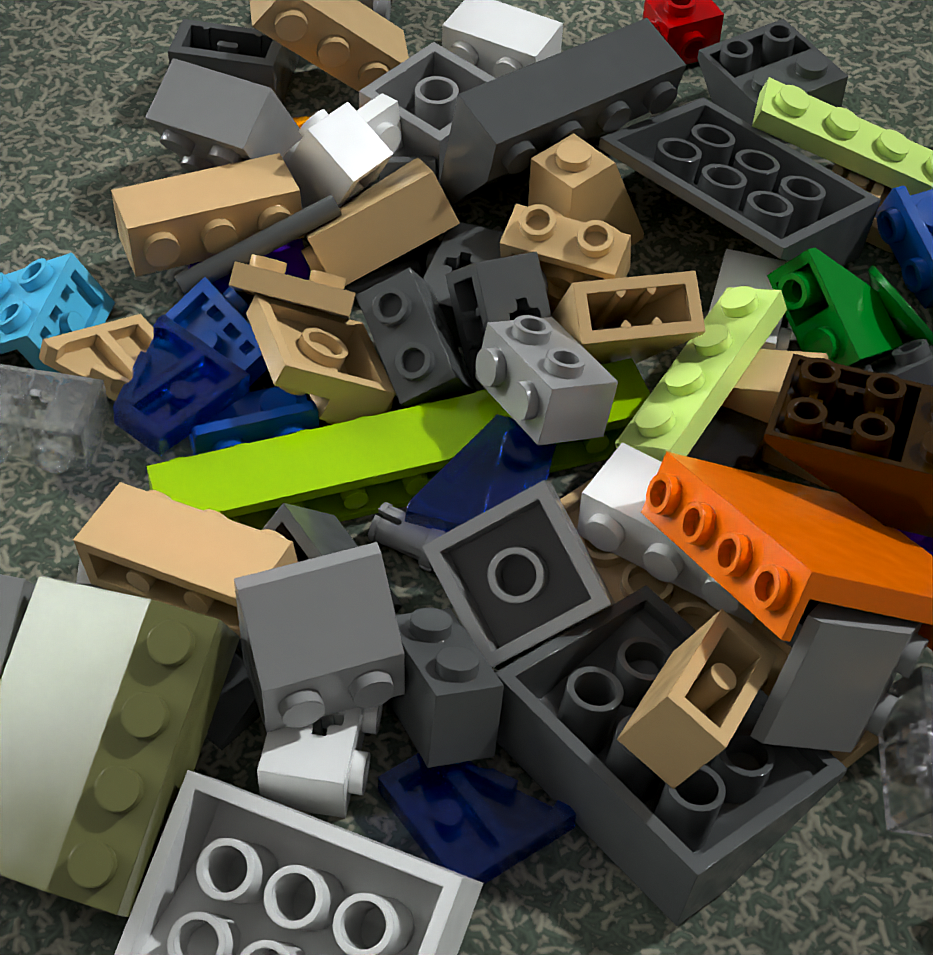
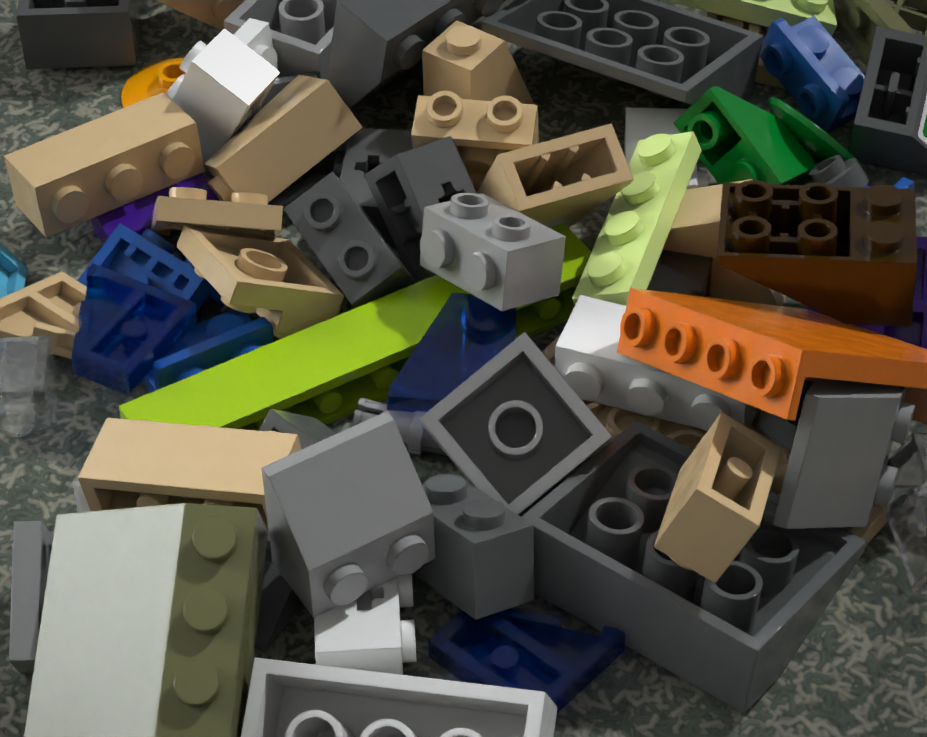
camera: 10 degrees left, 5 degrees down
(218, 118) = (90, 69): light grey brick -> none
(261, 243) = (173, 176): dark grey bar -> none

